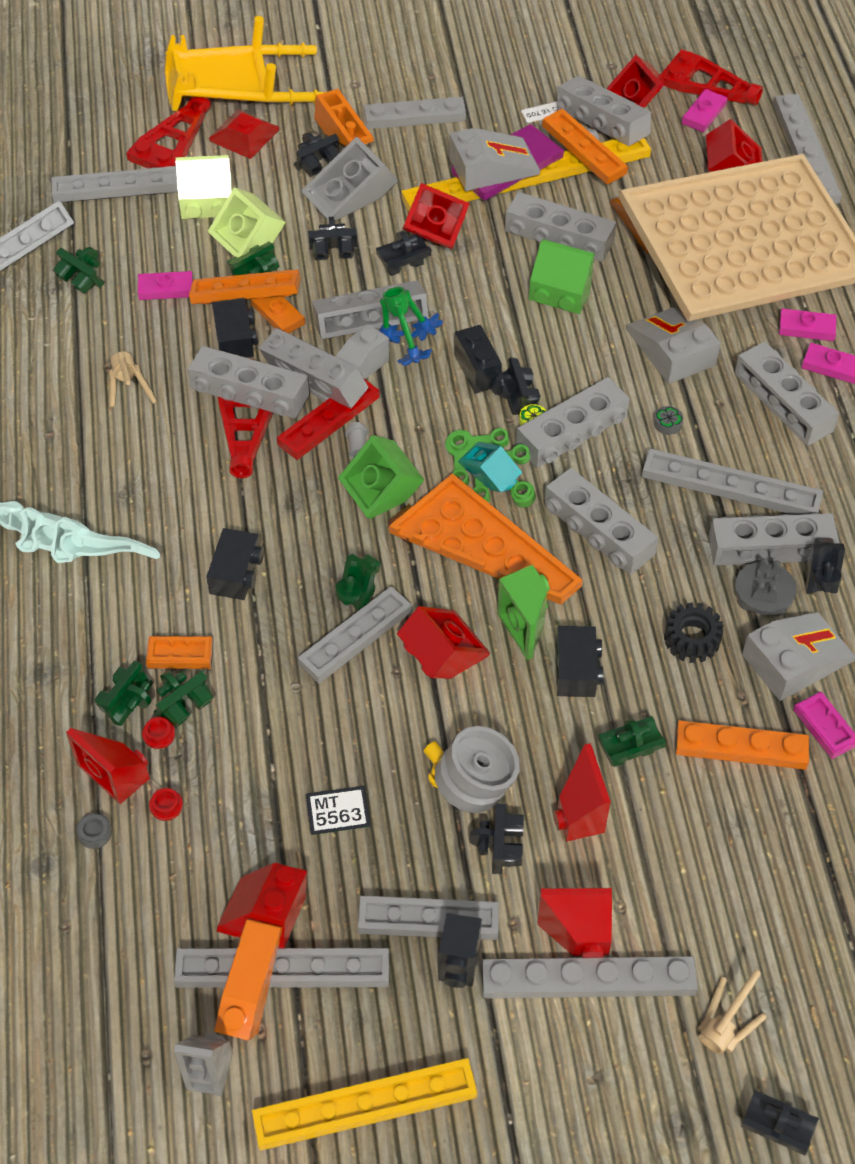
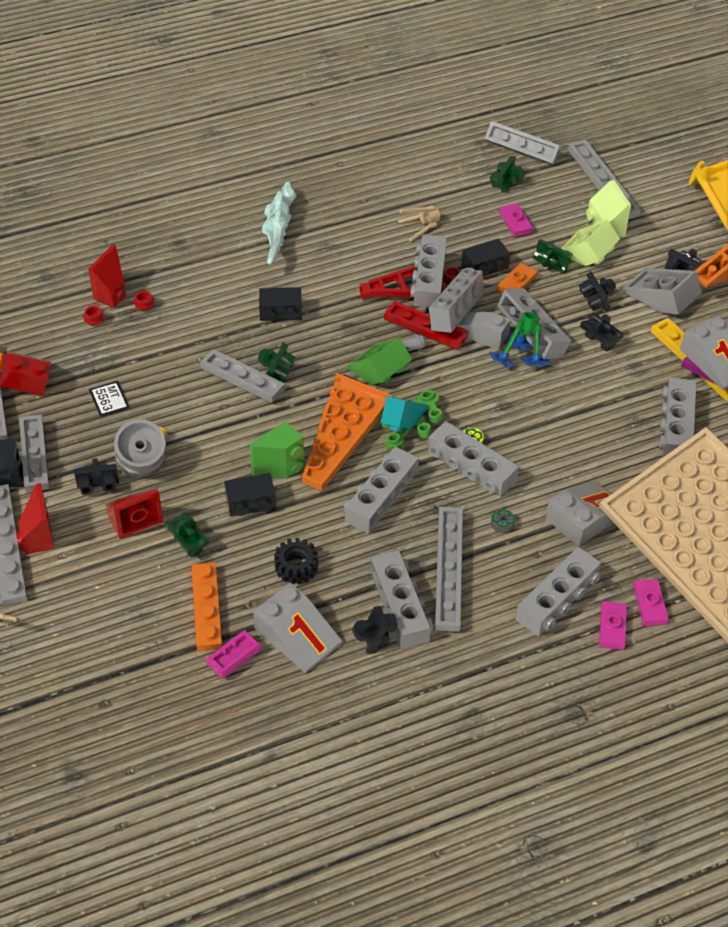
camera: 75 degrees right, 5 degrees down
(94, 831) = (70, 291): dark grey tile -> none
(127, 694) = (166, 278): dark green hips -> none
(152, 155) = (641, 180): red plate -> none
(179, 652) = (205, 296): orange plate -> none
(193, 689) = (173, 300): dark green hips -> none
(244, 134) = (690, 225): red slope -> none
(245, 286) = (525, 254): orange plate -> none
(436, 216) = (639, 338): red slope -> none
(441, 642) = (246, 419): red slope -> none
(476, 357) = (511, 392): black brick -> none
(514, 386) = (495, 415): black hips -> none
(561, 276) = (613, 424): bright green slope -> none
(765, 588) = (342, 602): dark grey plate -> none

